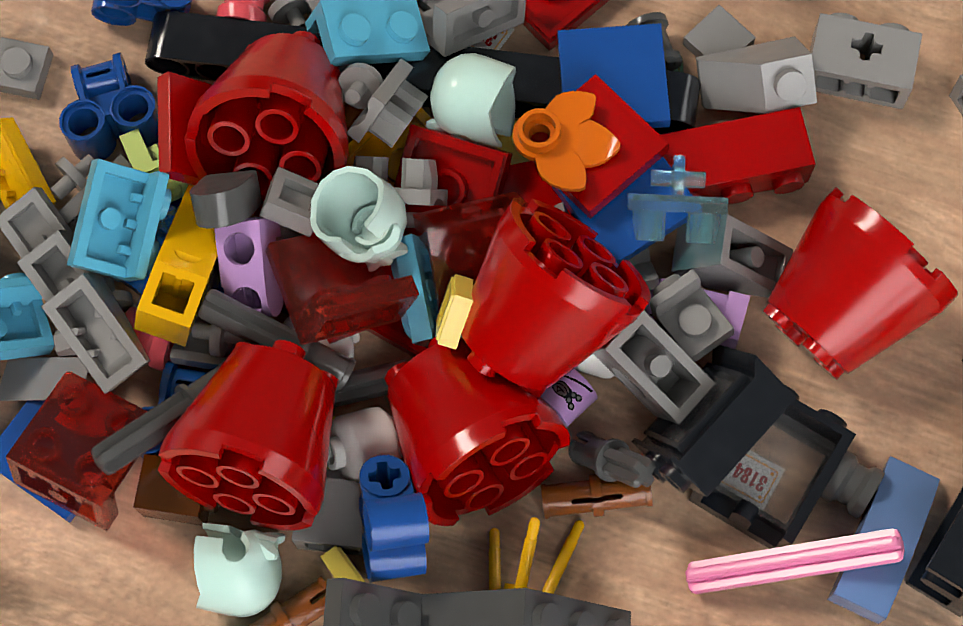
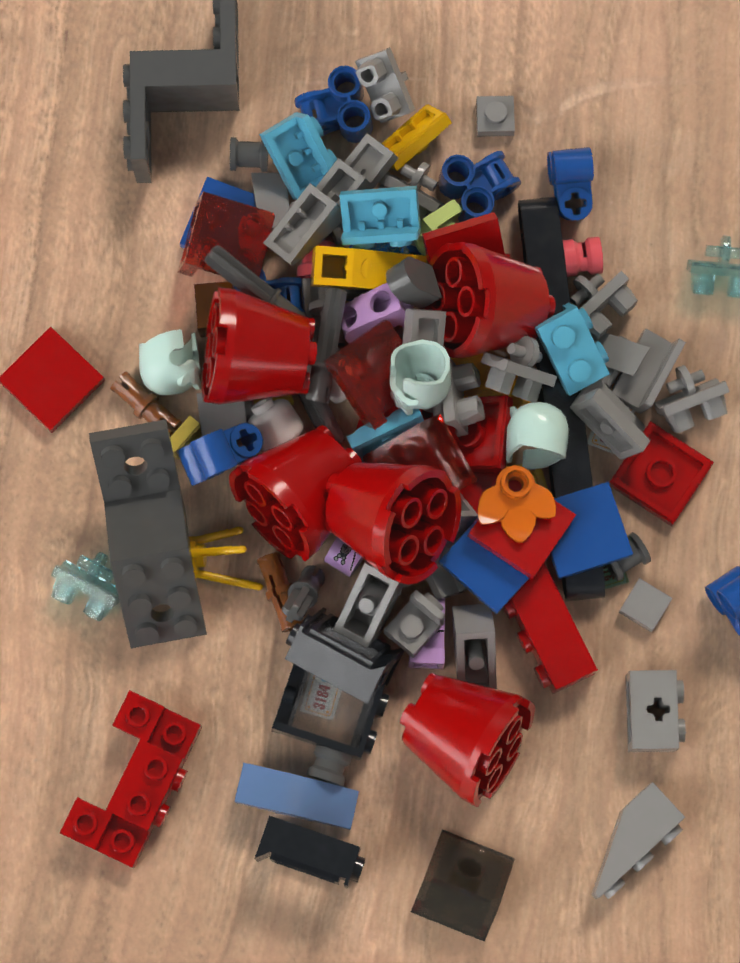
camera: 70 degrees right, 5 degrees up
(454, 311) = (369, 456): light yellow tile -> none
(702, 212) = (483, 575): clear light blue hips -> none
(758, 77) = (617, 637): light grey slope -> none
(795, 561) = (260, 733): bright pink axle -> none

